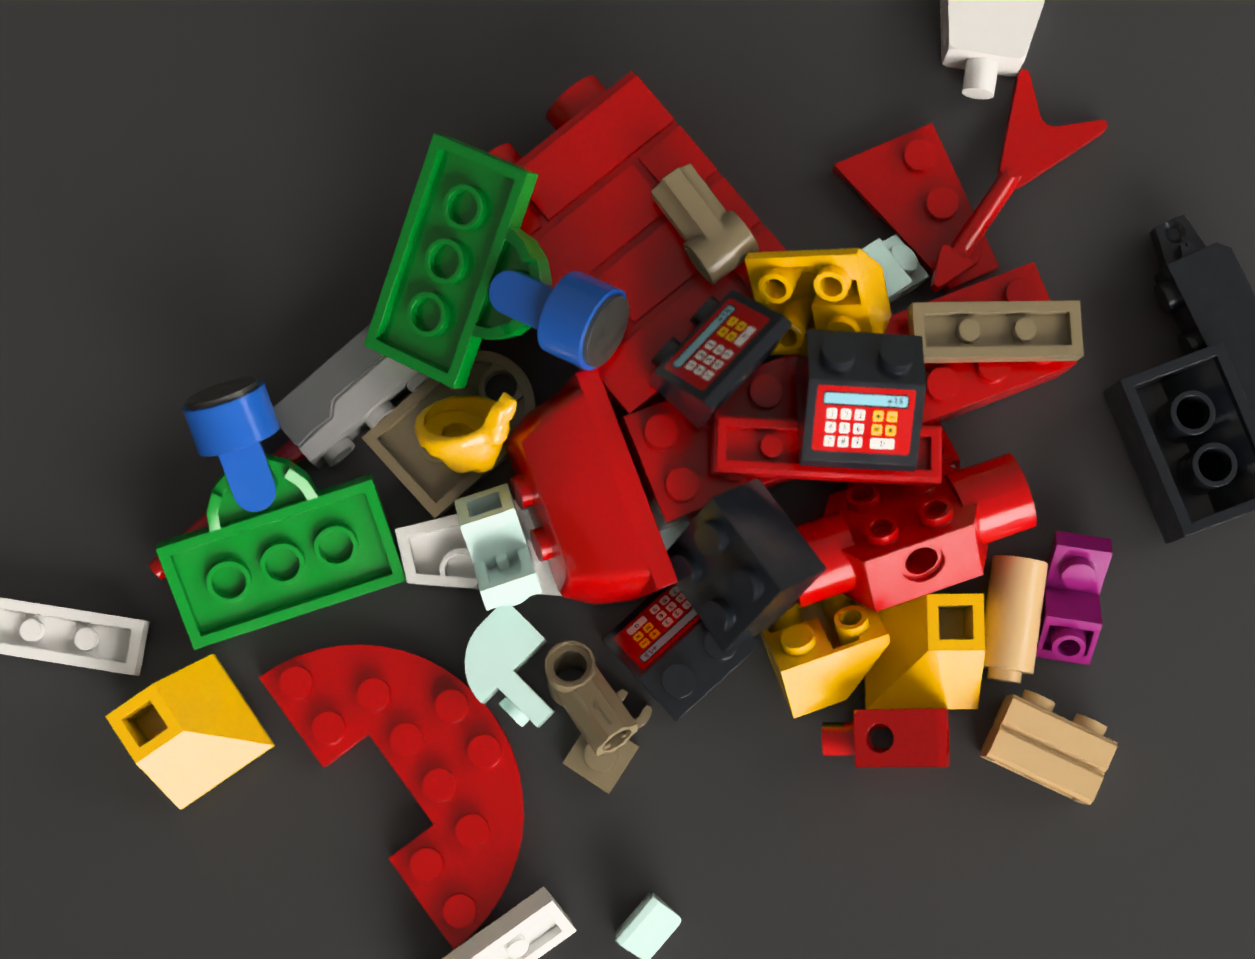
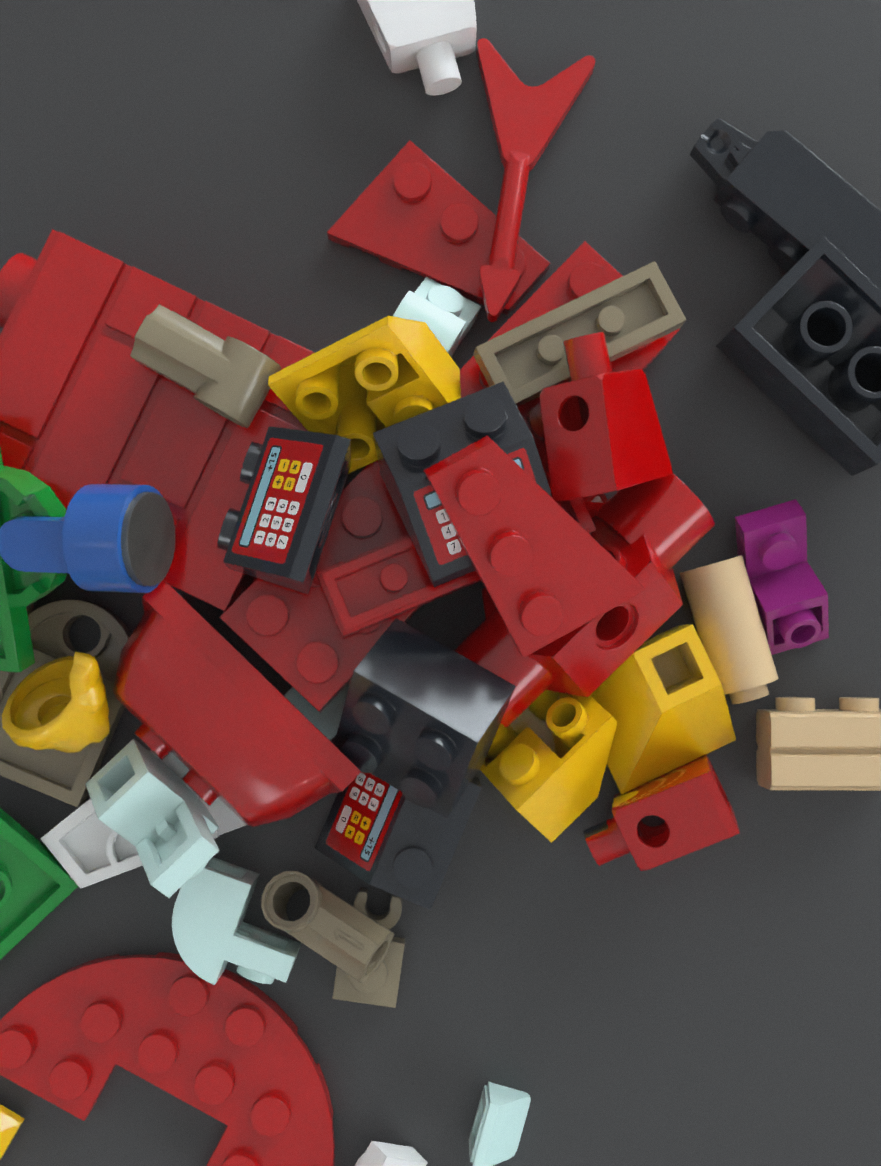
camera: 30 degrees left, 5 degrees up
(883, 468) = (526, 548): none -> red wing
(981, 404) = (600, 425): none -> red torso

